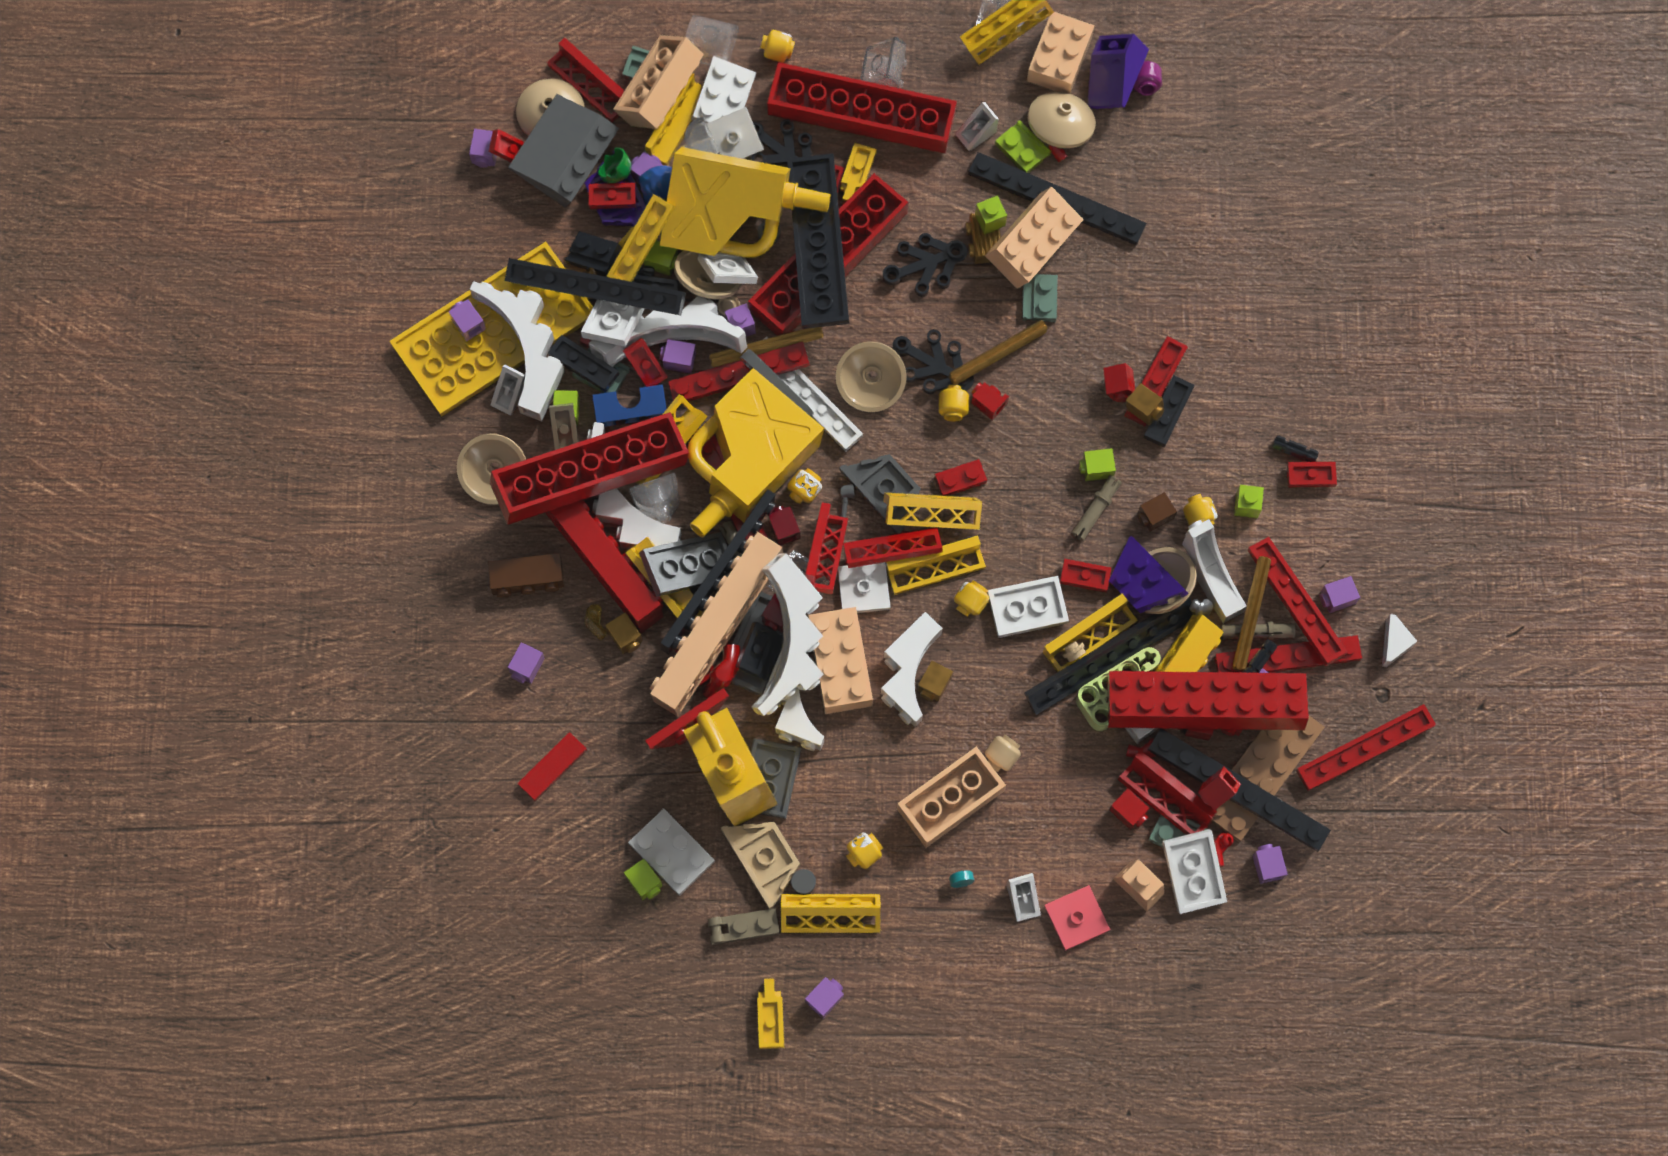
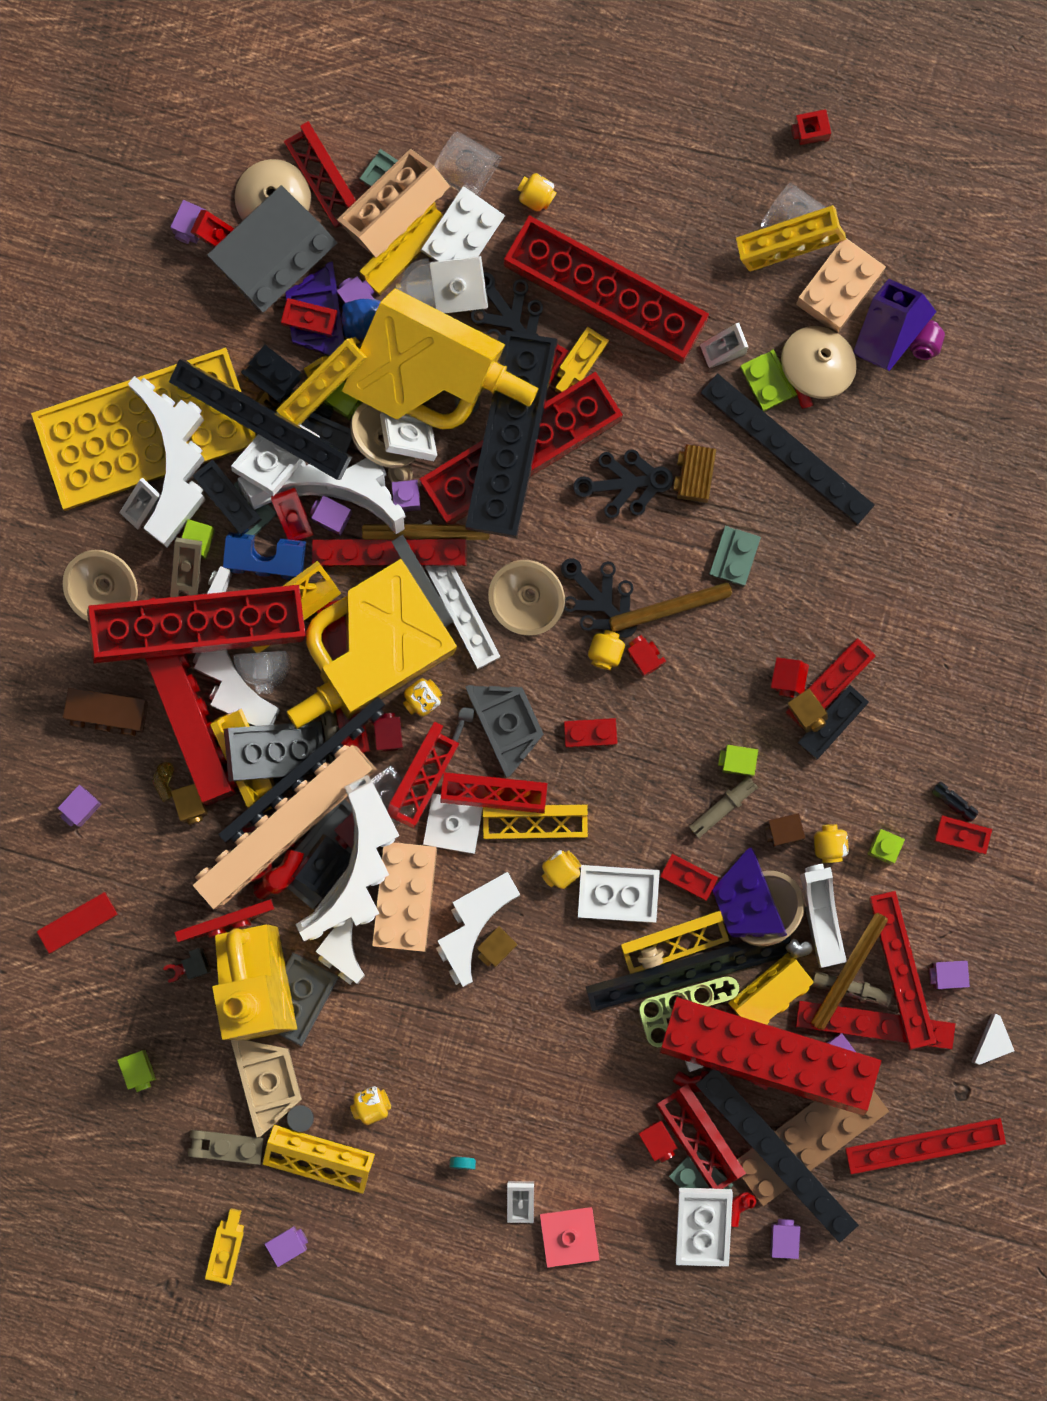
camera: 20 degrees right, 10 degrees up
(466, 319) = (117, 414): medium lavender brick -> none
(615, 167) = (320, 287): green hair -> none
(668, 773) = (193, 967): none -> pearl dark grey piece
(671, 852) = (174, 1047): white plate -> none
(885, 62) = (644, 247): clear brick -> none
(932, 501) = (551, 754): yellow fence -> none
(951, 797) = (476, 1076): light nougat brick -> none
(991, 215) = (706, 455): lime brick -> none
(1002, 753) = (544, 1043): tan head -> none
(1034, 237) = (746, 491): light nougat brick -> none
(1140, 884) = (643, 1222): light nougat torso -> none
(1219, 788) = (754, 1151): red brick -> none
(1261, 657) = (841, 1023): black axle -> none

